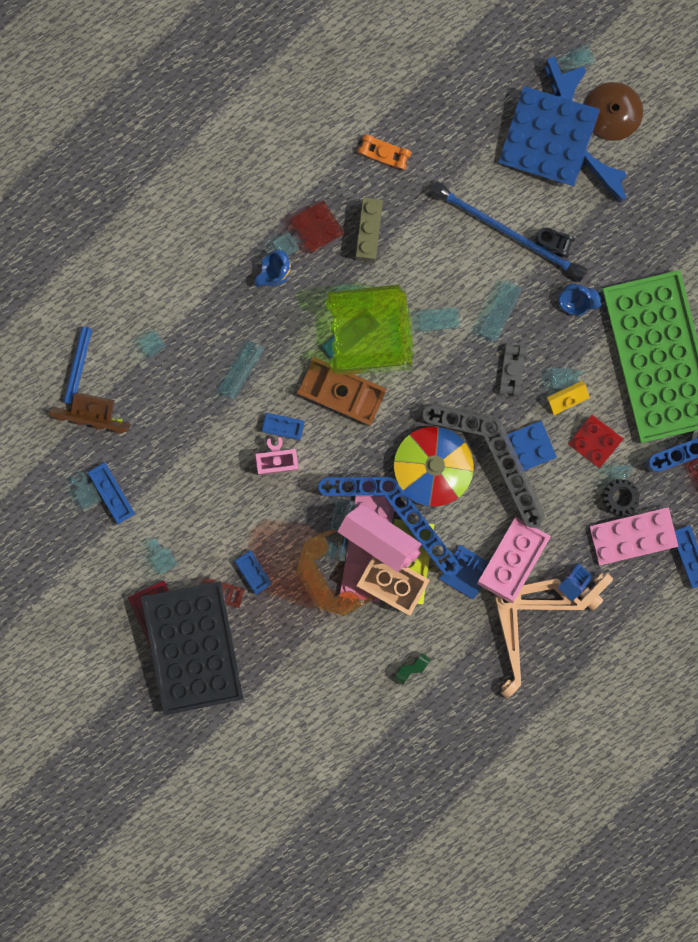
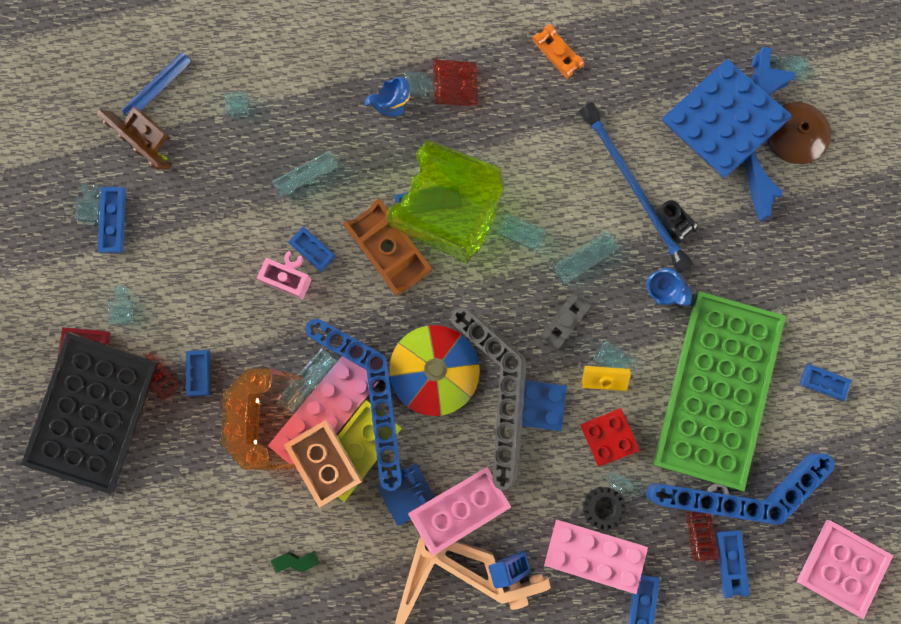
camera: 25 degrees right, 5 degrees down
(369, 230) = (502, 111): olive brick -> none
(380, 538) = (335, 410): bright pink brick -> none

